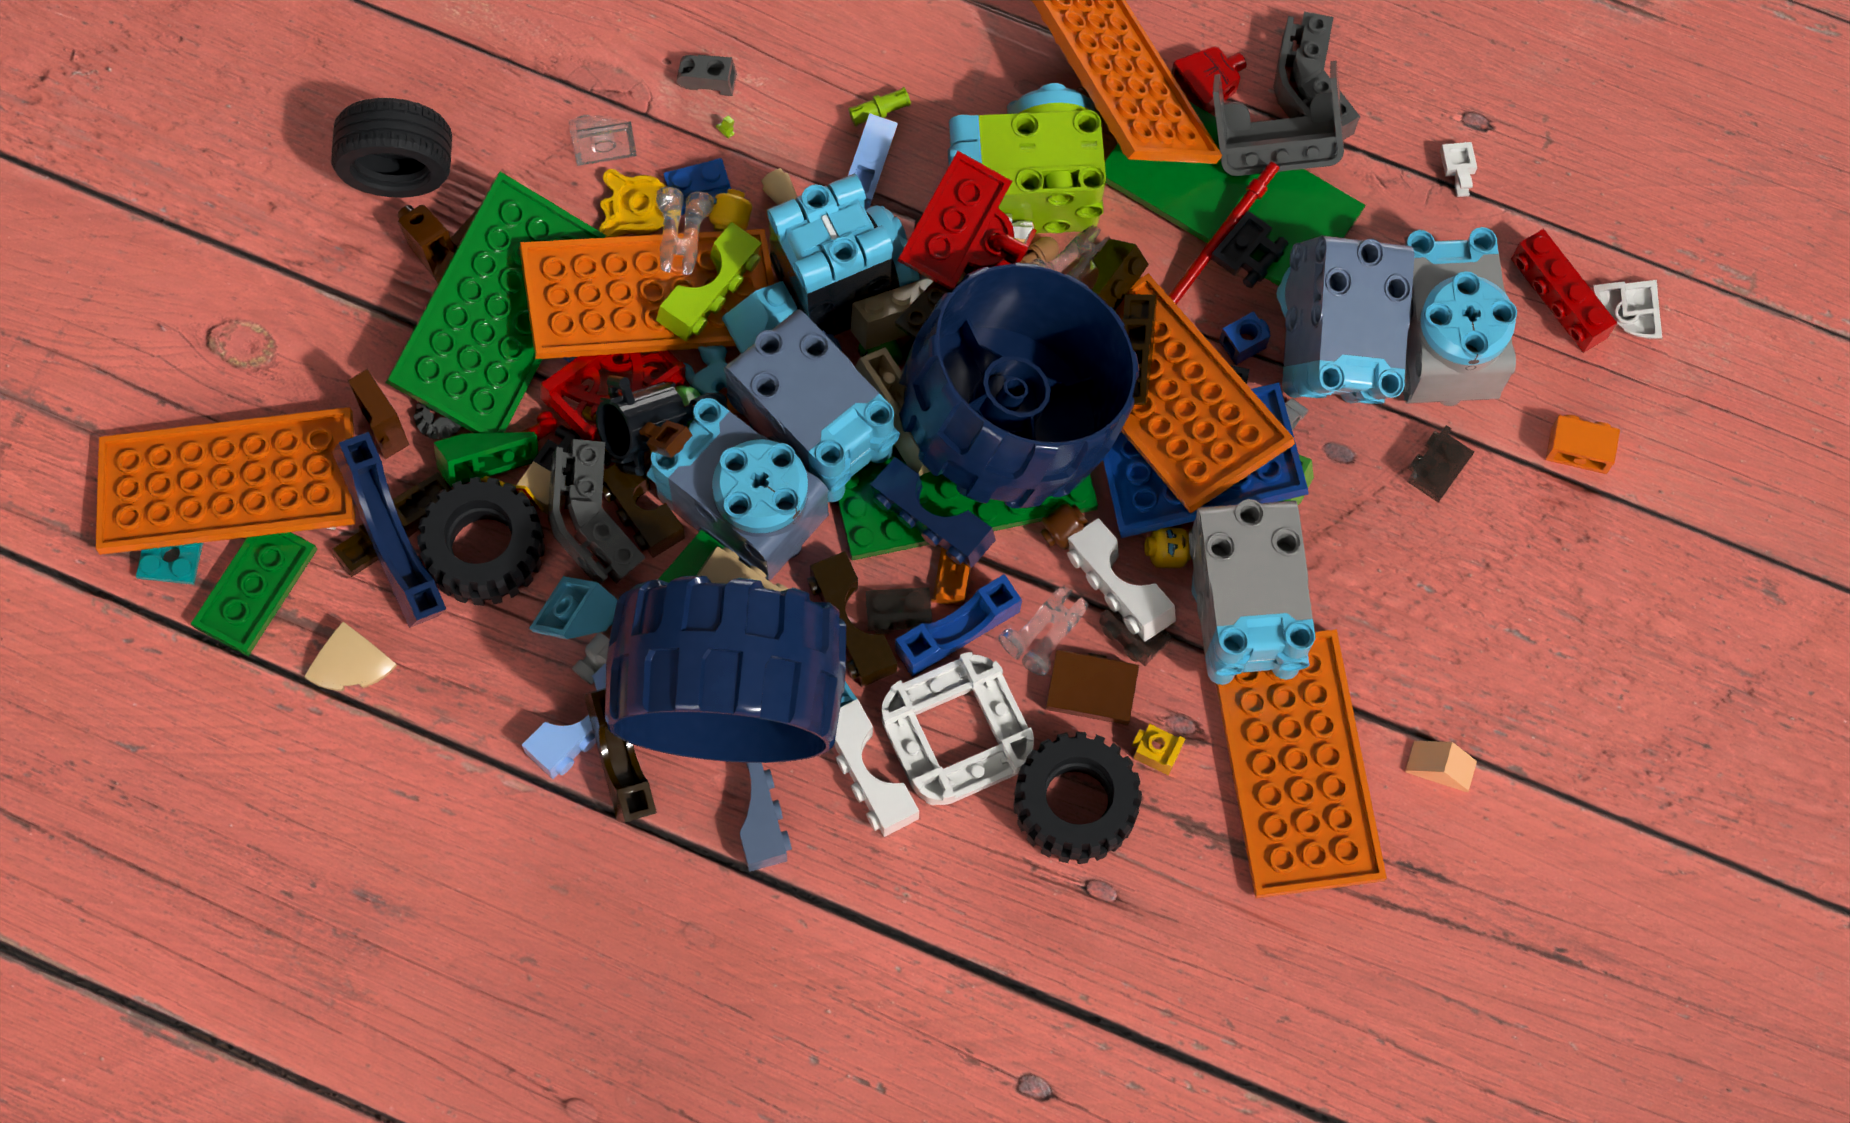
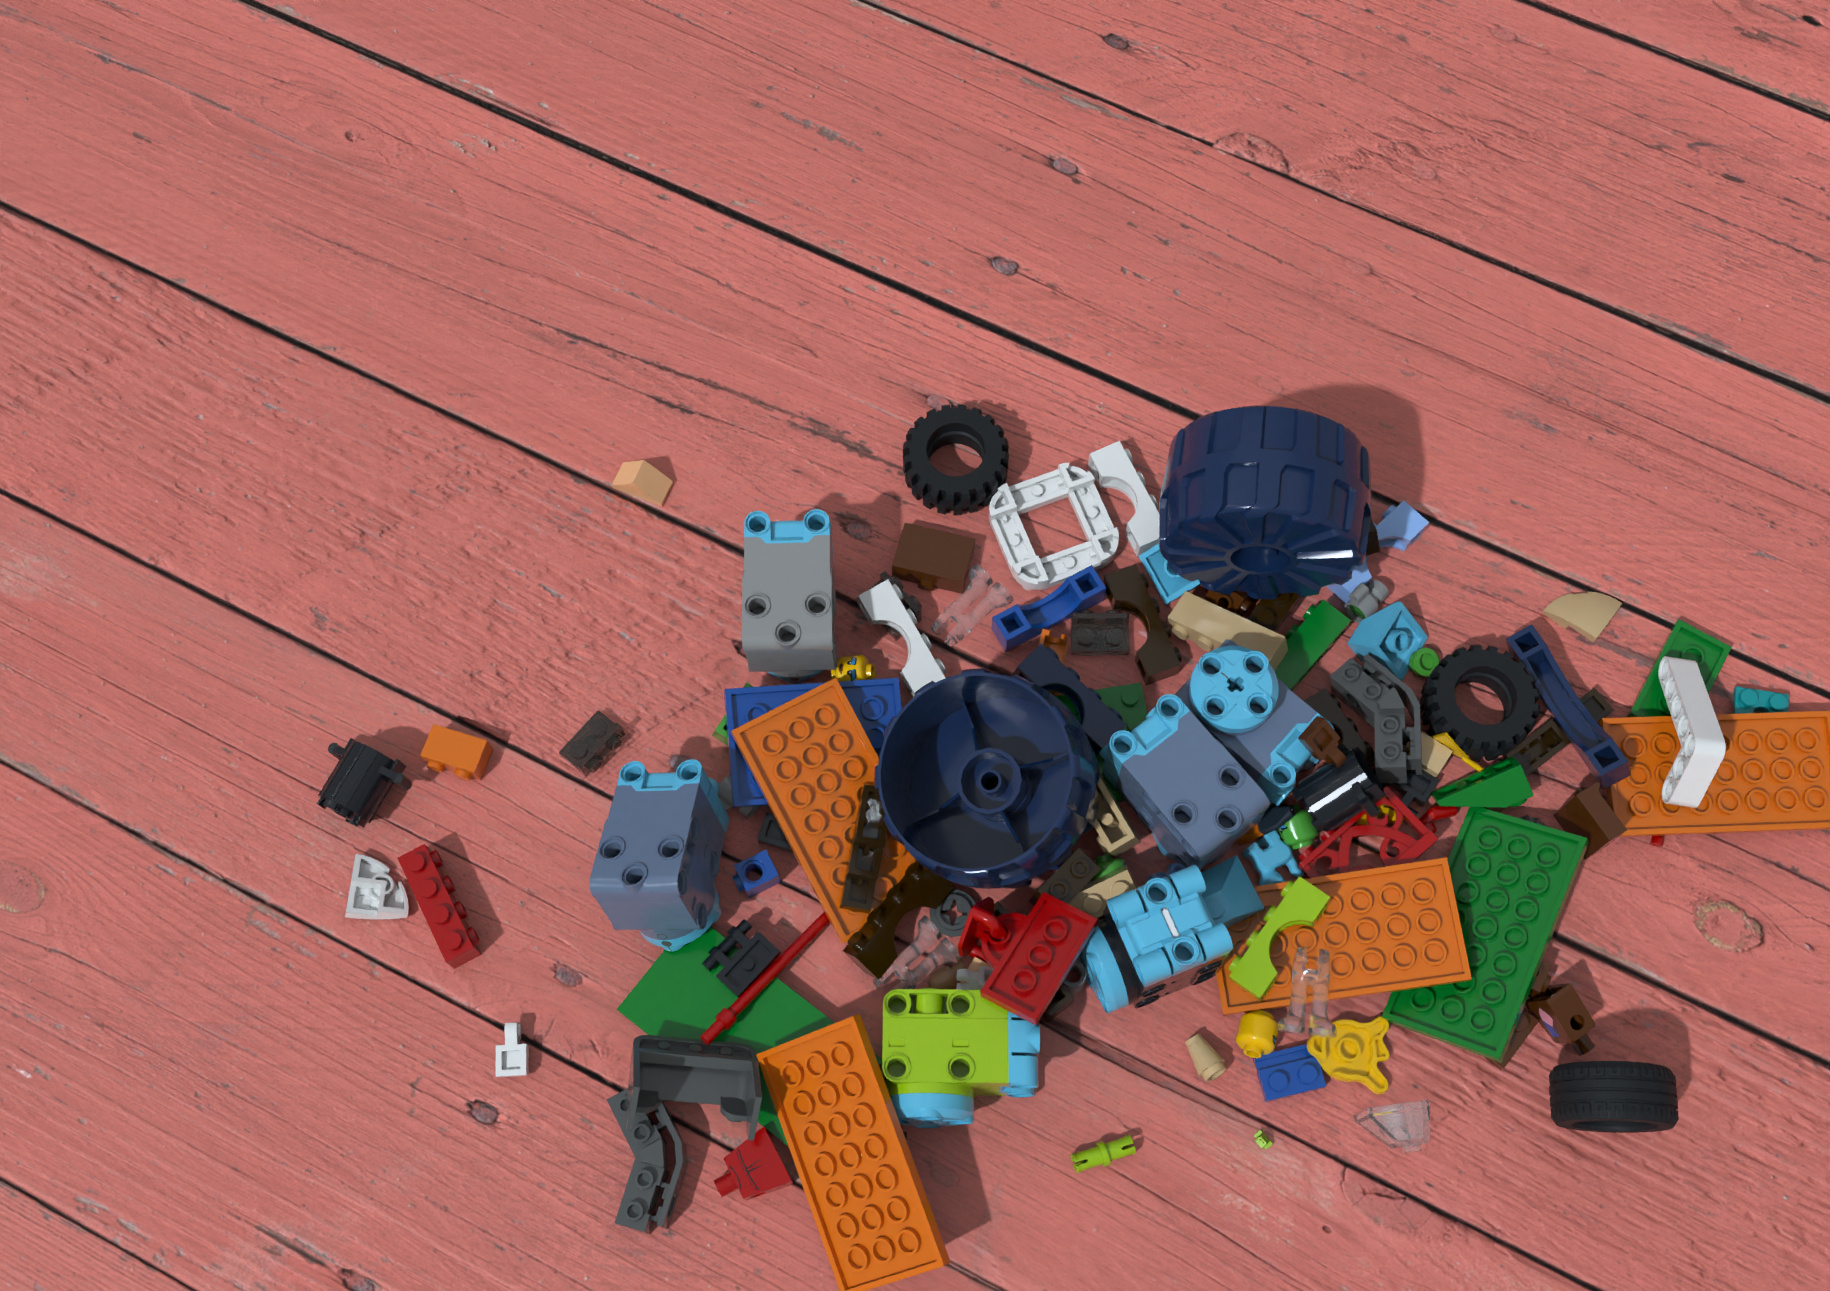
camera: 170 degrees left, 0 degrees up
(257, 509) = (1697, 731): none -> white beam
(536, 595) = (1423, 662): none -> bright green tile
(707, 73) = (1284, 1200): dark grey leg -> none
(872, 153) = (1119, 1073): light blue slope -> none
(1159, 759) = (882, 512): yellow brick -> none
(1301, 777) = (758, 460): orange plate -> none
(1458, 321) = (549, 860): piece -> none
(1675, 402) = (360, 782): none -> black container

